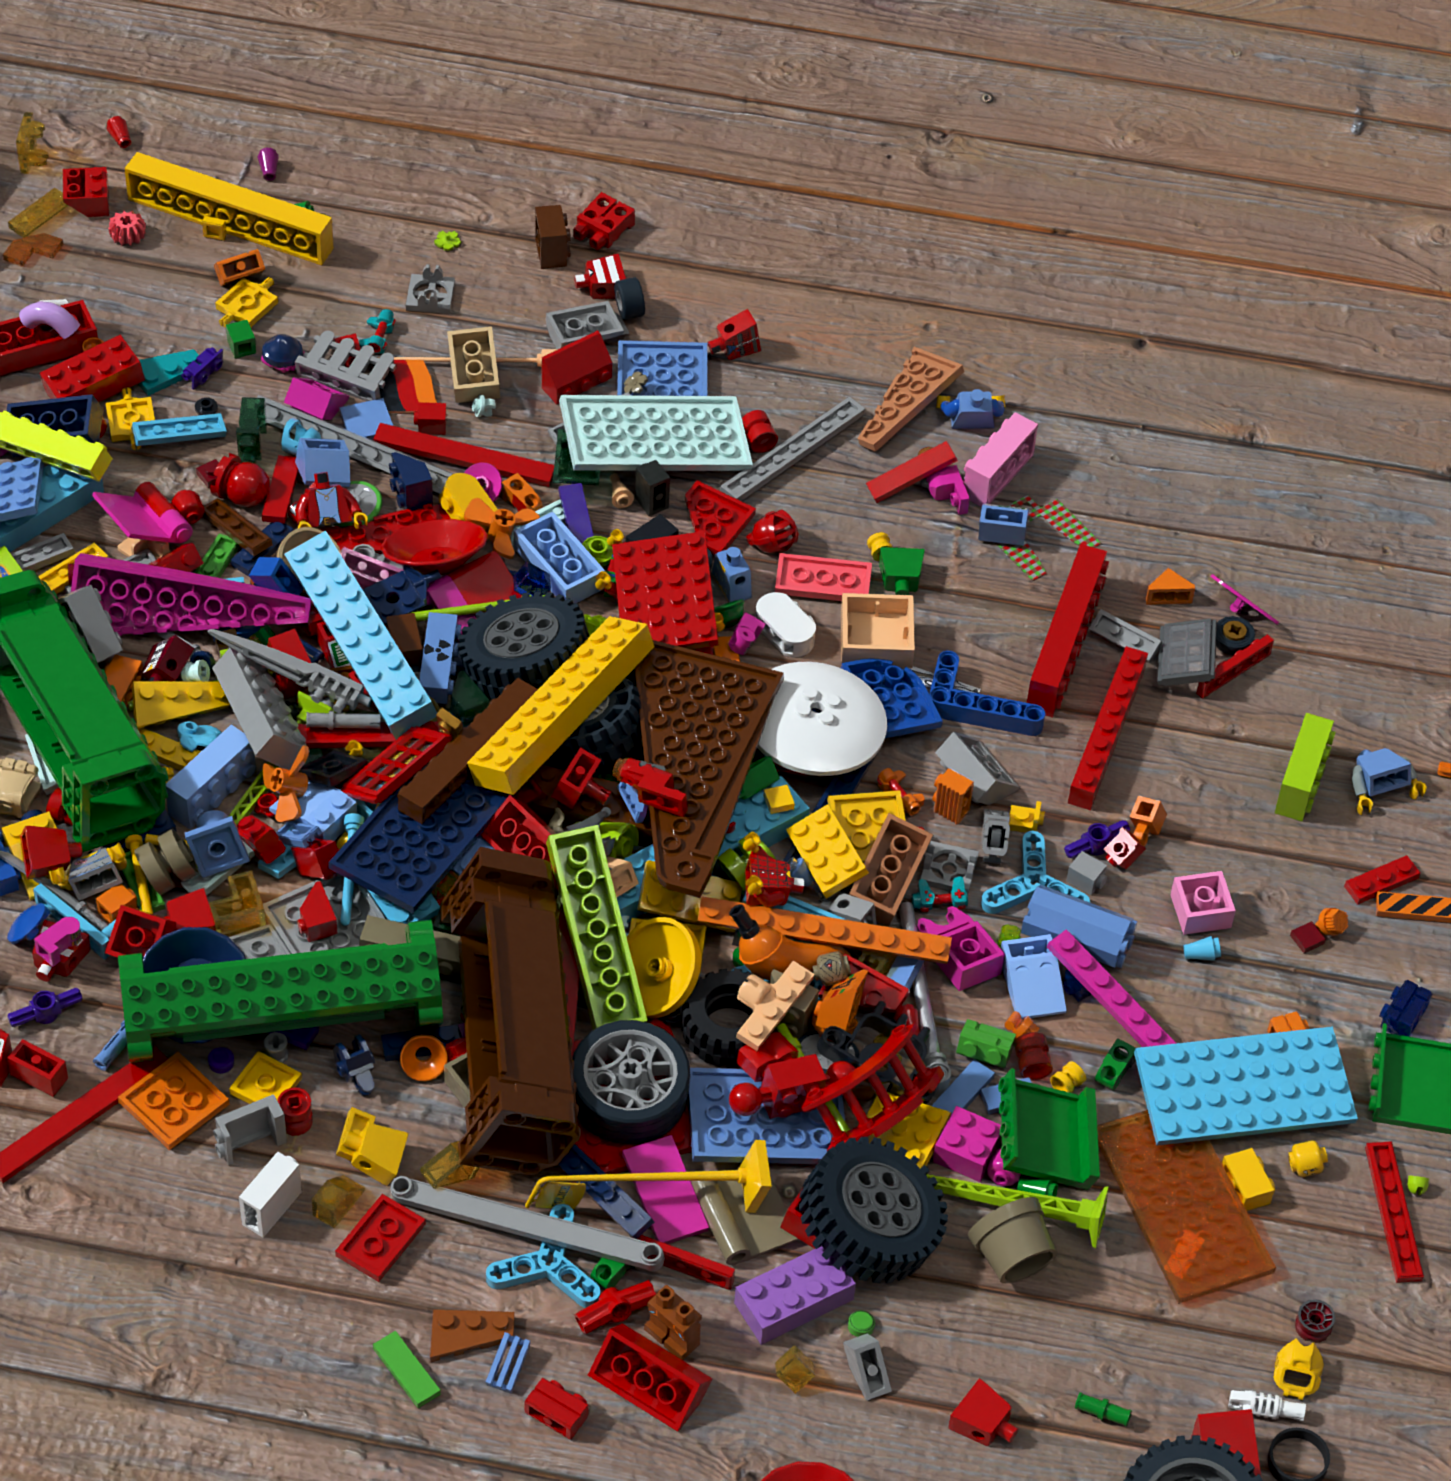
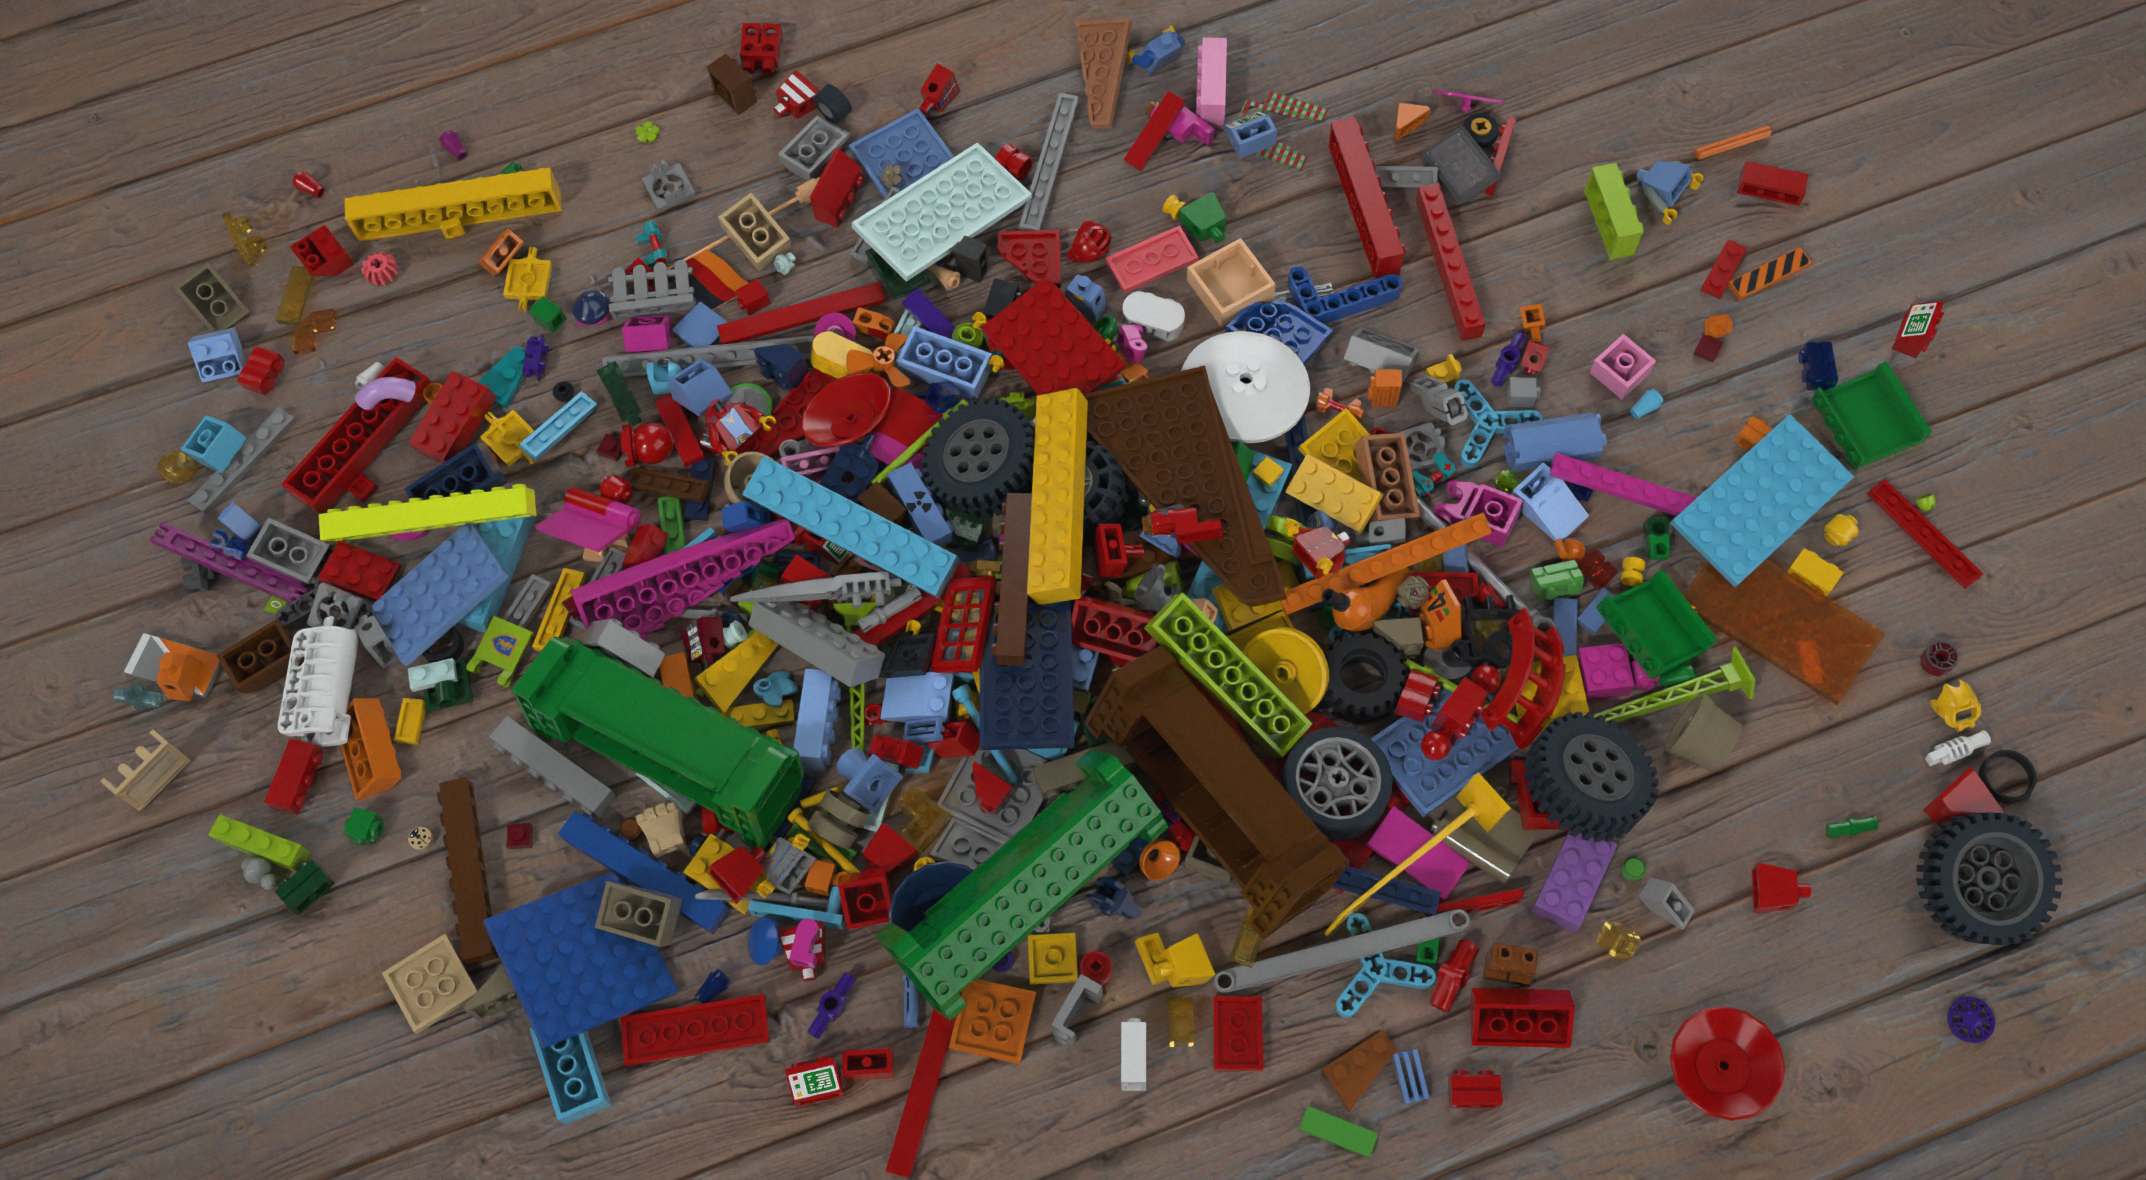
camera: 25 degrees left, 15 degrees up
(290, 786) = (889, 693): orange piece -> none
(770, 1002) = (1396, 652): light nougat plate -> none

